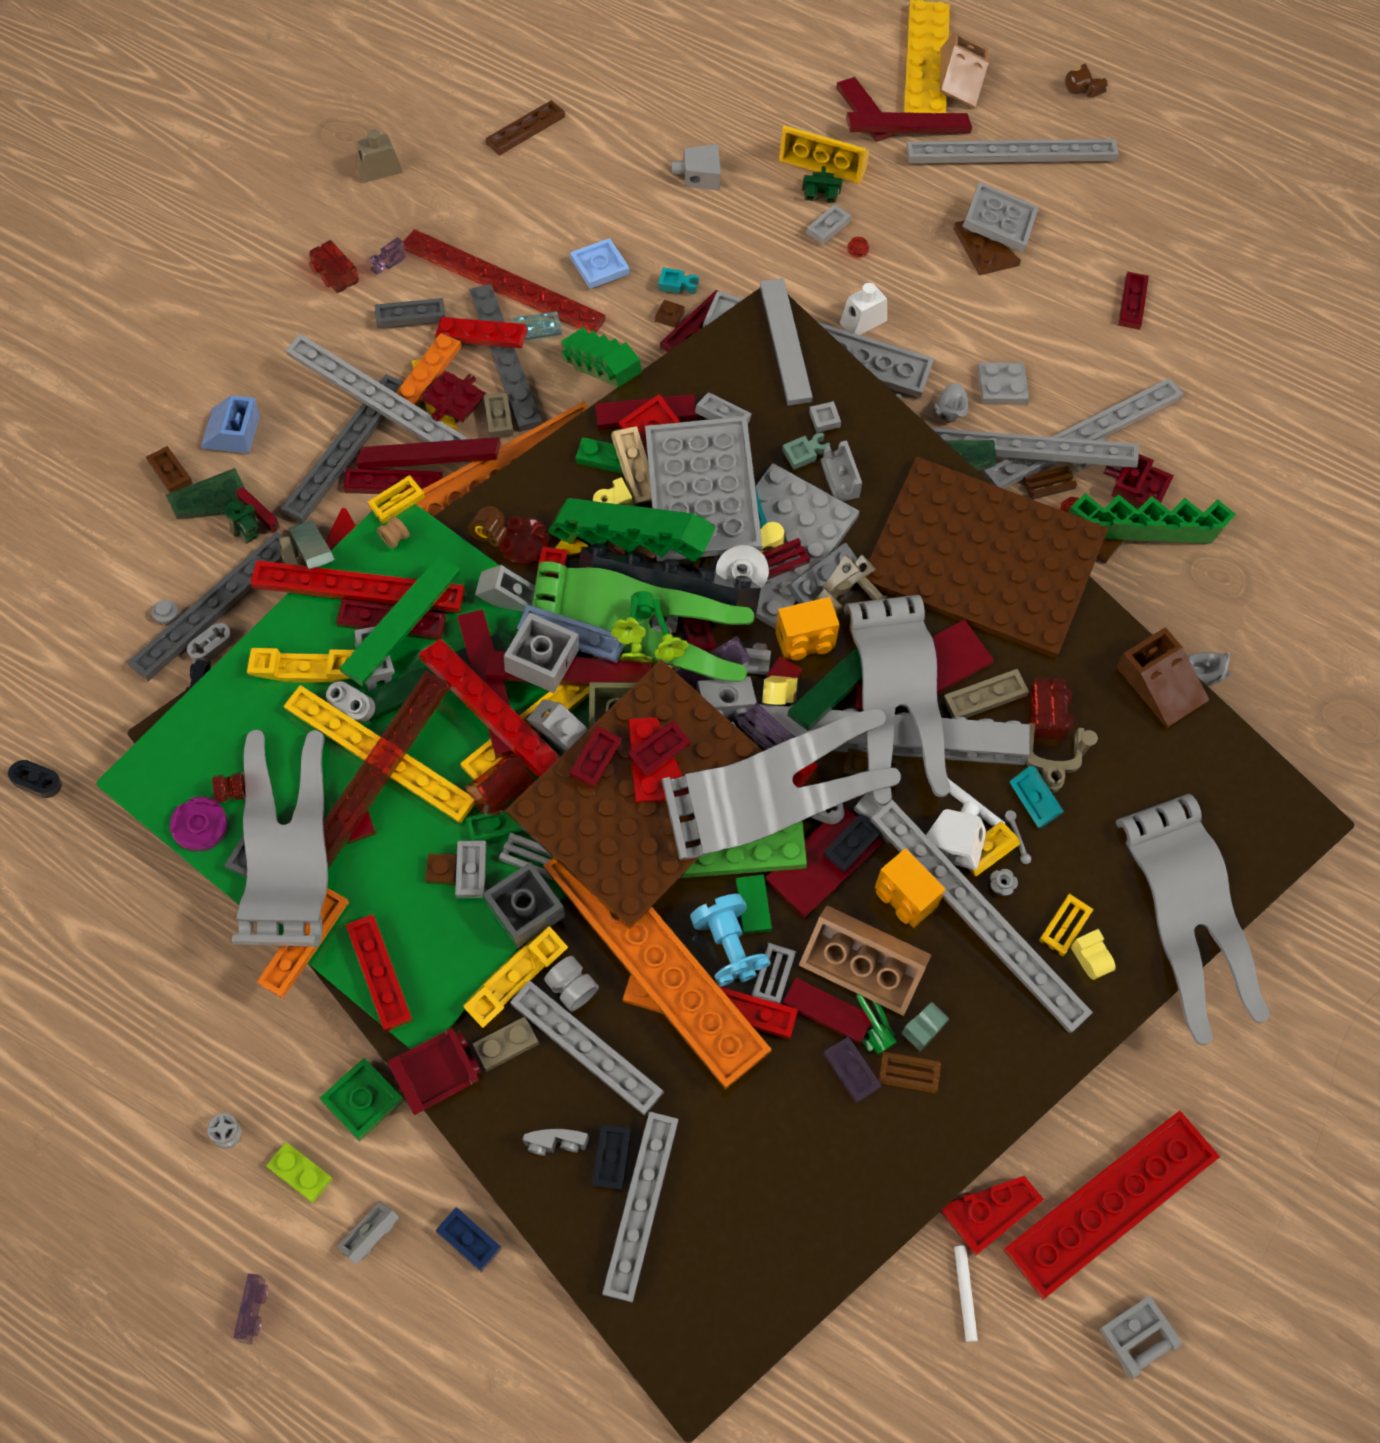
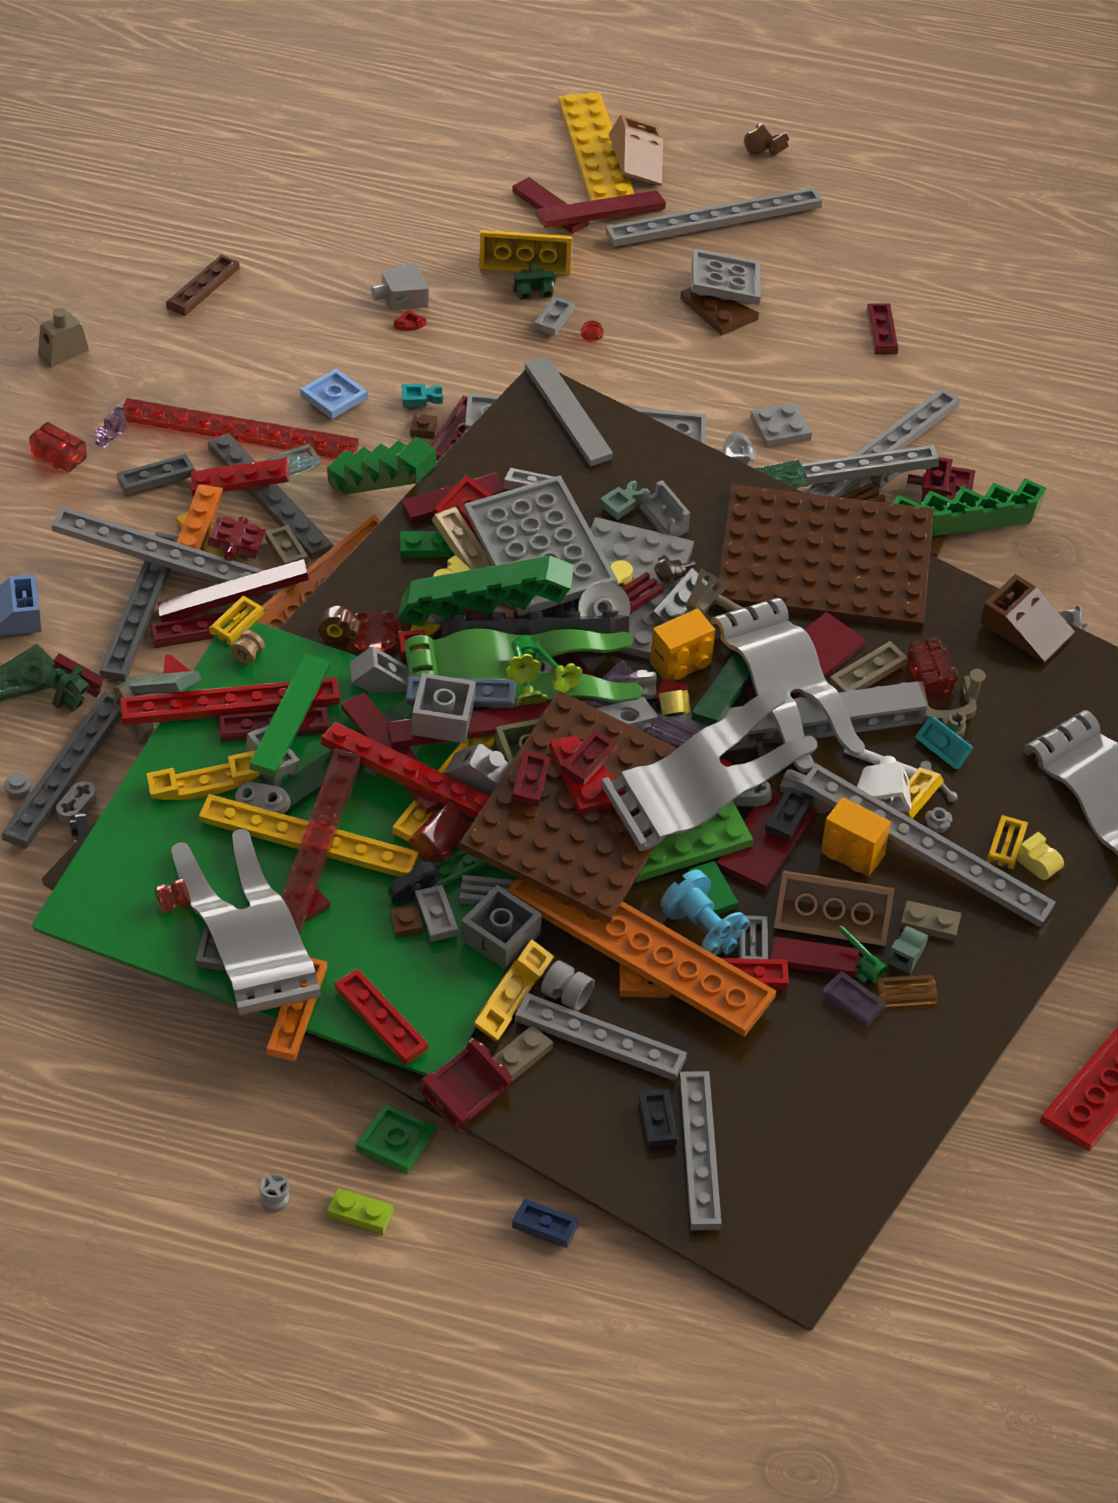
camera: 15 degrees left, 15 degrees down
(198, 824) = (152, 936): magenta tile -> none
(248, 1321) = (365, 1331): plate -> none
(368, 1232) = (448, 1238): light grey plate -> none
(466, 830) = (421, 877): none -> black plate
(546, 1140) = (589, 1117): light grey slope -> none
(696, 202) = (409, 321): none -> red tile
(823, 542) = (671, 570): none -> dark brown piece
(825, 417) = (631, 467): light grey plate -> none
(864, 310) = (624, 380): white torso -> none
(959, 997) = (931, 920): none -> dark tan plate
(965, 1294) = (1018, 1162): white bar -> none
(991, 1212) = (1019, 1095): red wing -> none

